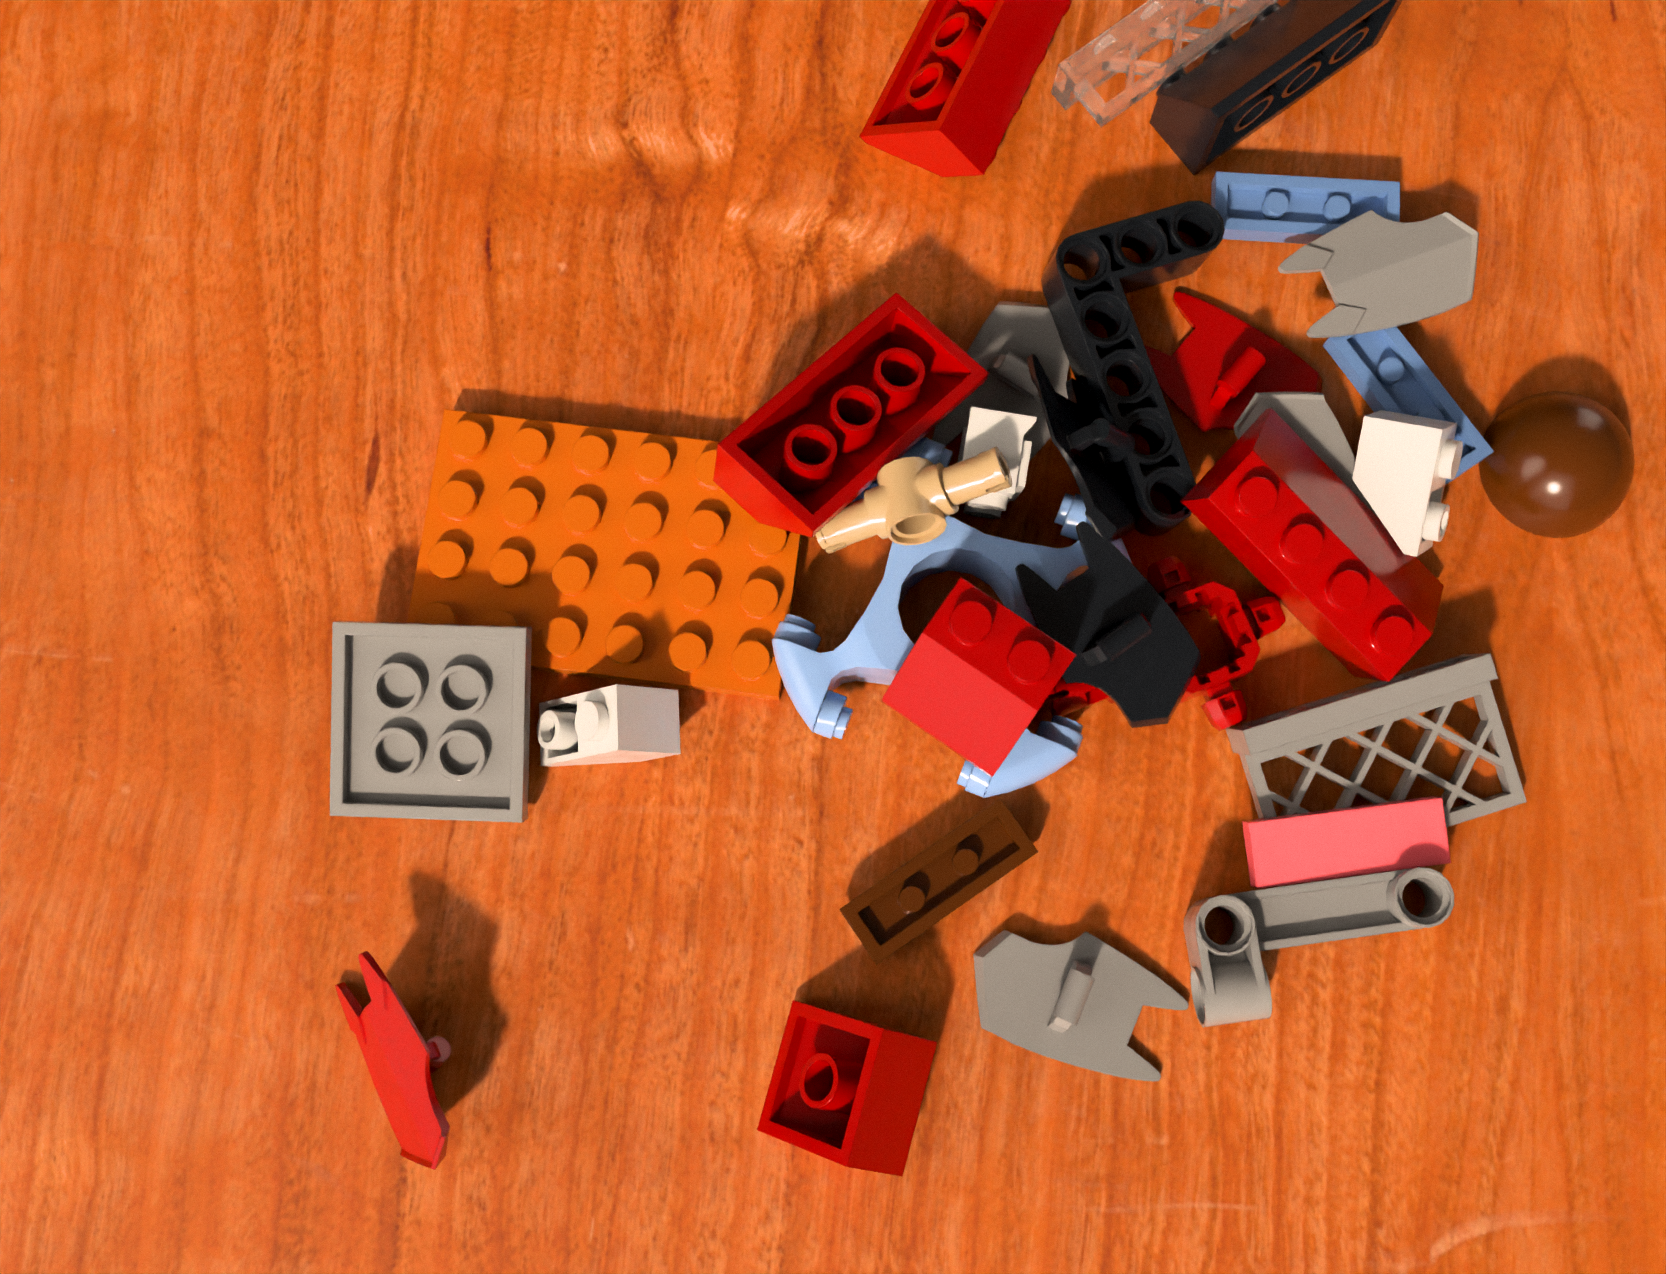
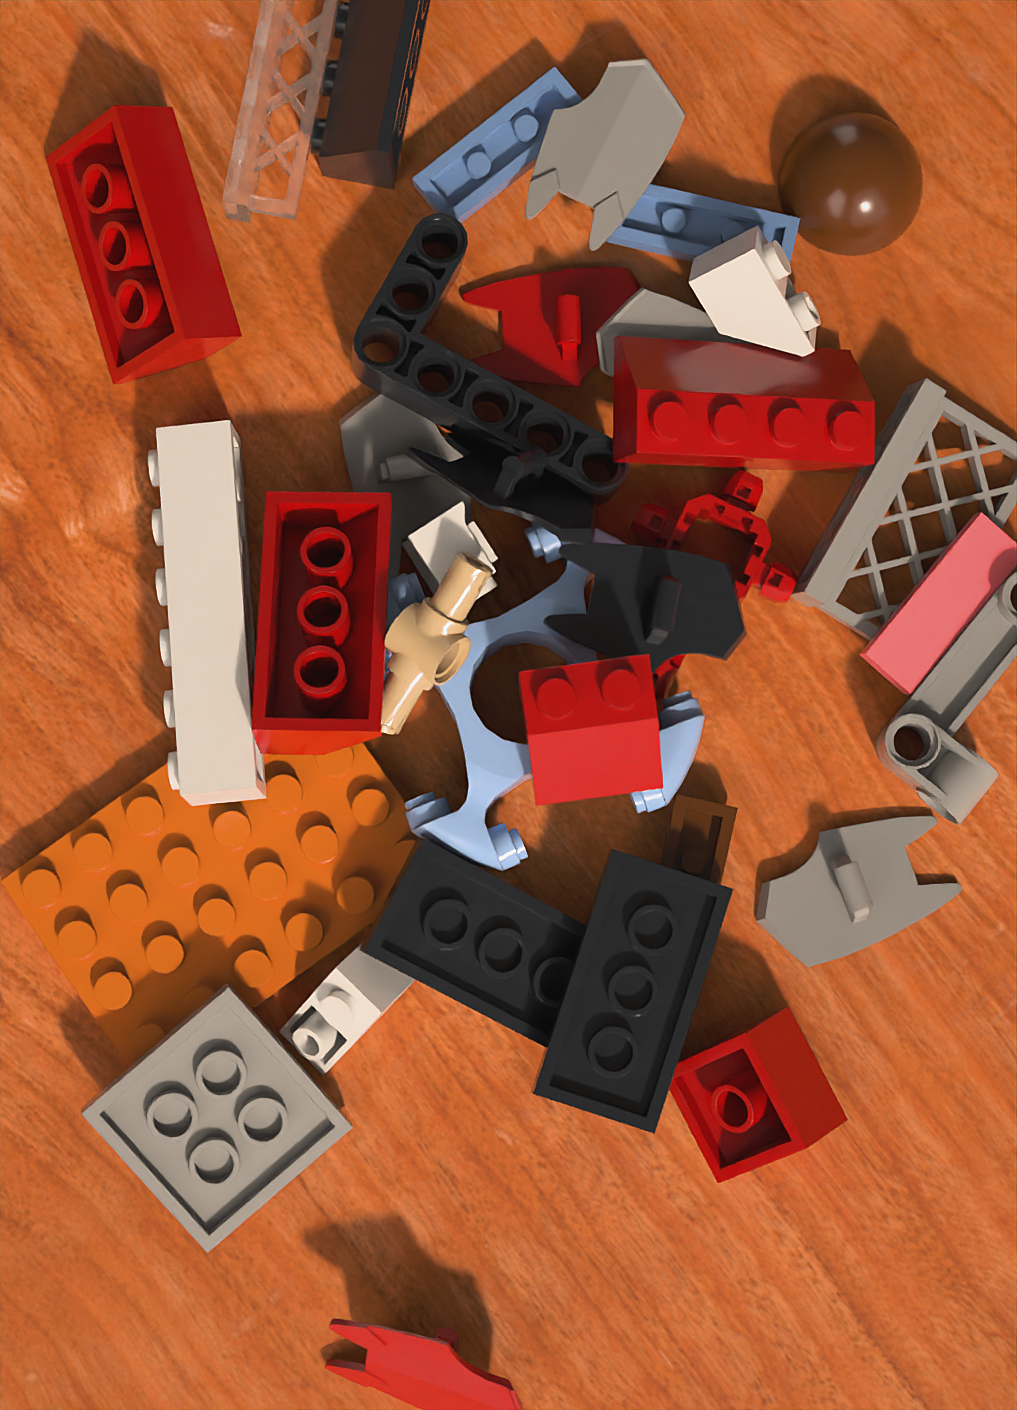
camera: 50 degrees left, 5 degrees up
(753, 792) = (476, 940): none -> black plate
(779, 335) = (208, 612): none -> white brick
(825, 915) = (632, 991): none -> black plate

